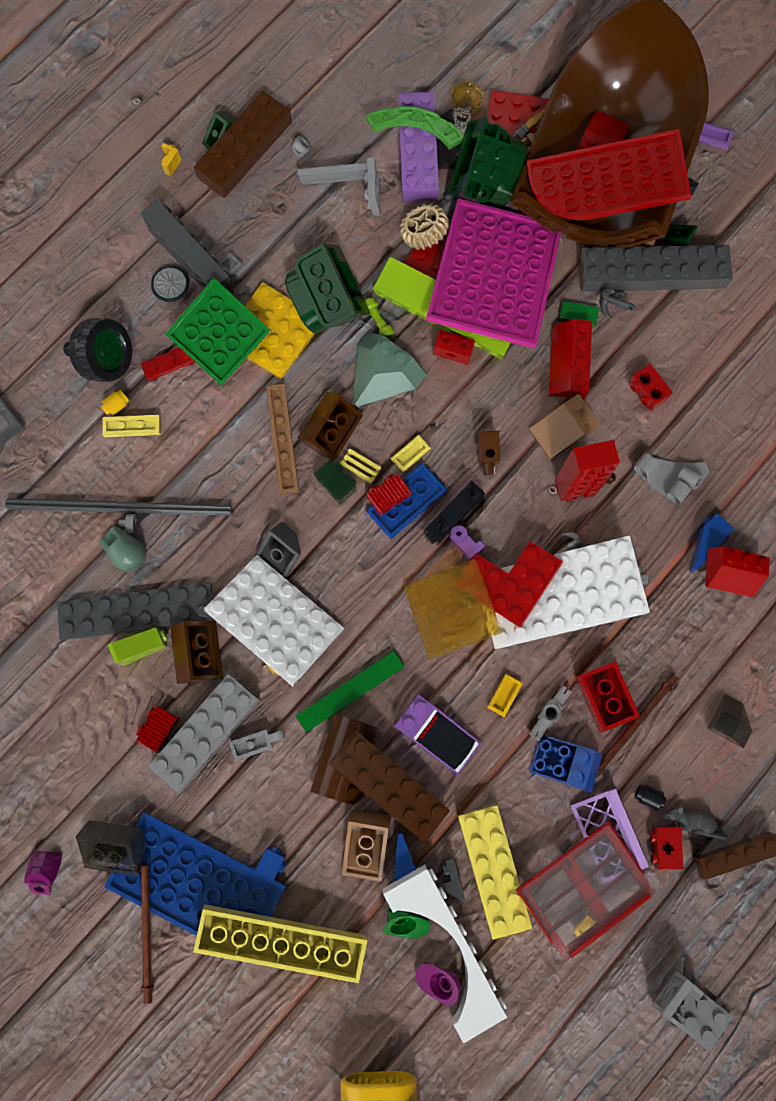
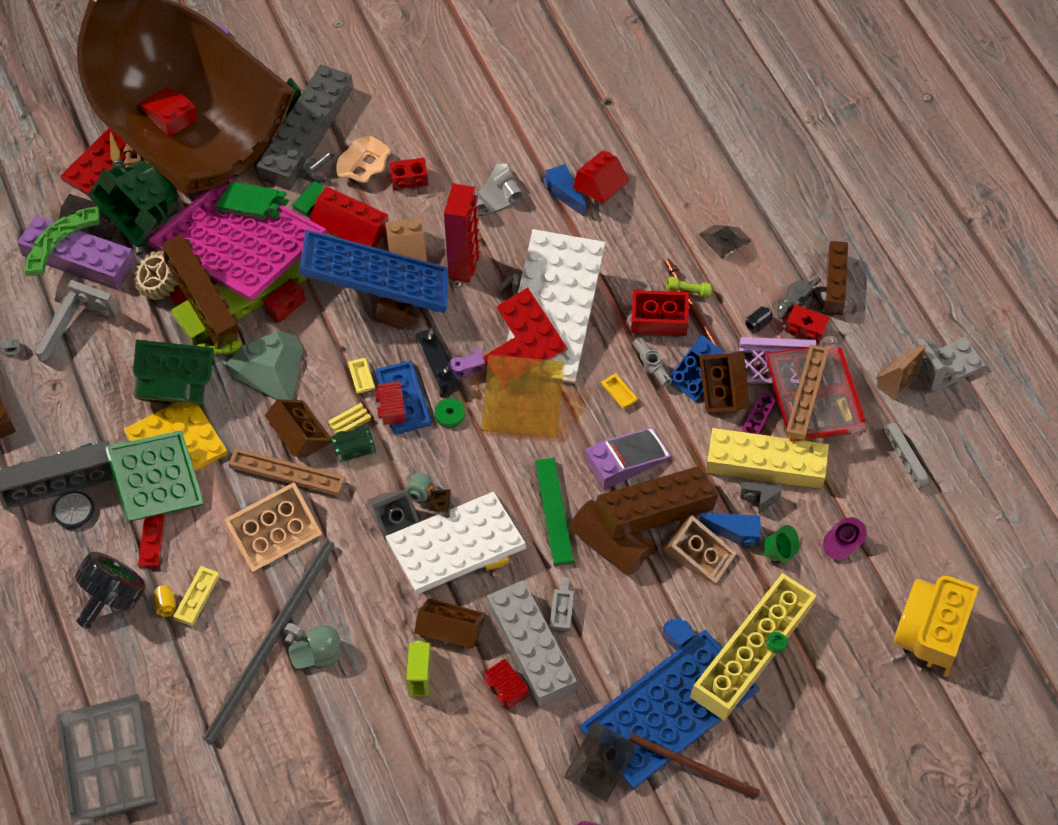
camera: 65 degrees left, 20 degrees down
(133, 611) = (380, 666): dark grey plate -> none
(222, 453) = (272, 527): none -> light nougat slope
(284, 968) = (776, 642): none -> green tile
(311, 587) = (441, 502): none -> dark brown tile
(317, 561) = (420, 487): none -> sand green head
(412, 270) = (200, 291): none -> reddish brown brick
(413, 542) = (449, 420): none -> green piece
(467, 91) = (54, 191): clear yellow piece -> none
(479, 1004) = (763, 512): white arch -> none
(510, 411) = (374, 271): none -> blue plate
(539, 263) = (251, 201): none -> green tile
(554, 836) = (757, 409): none -> magenta beam
(555, 796) = (724, 381): none -> reddish brown slope
(562, 1008) = (906, 455): none -> light grey beam
(576, 886) = (807, 392): none -> medium nougat plate
(612, 177) = (217, 106): red plate -> none
(642, 329) = (354, 157): none -> light nougat piece
(654, 968) = (901, 372): none -> medium nougat slope
(657, 726) = (703, 289): none -> lime piece

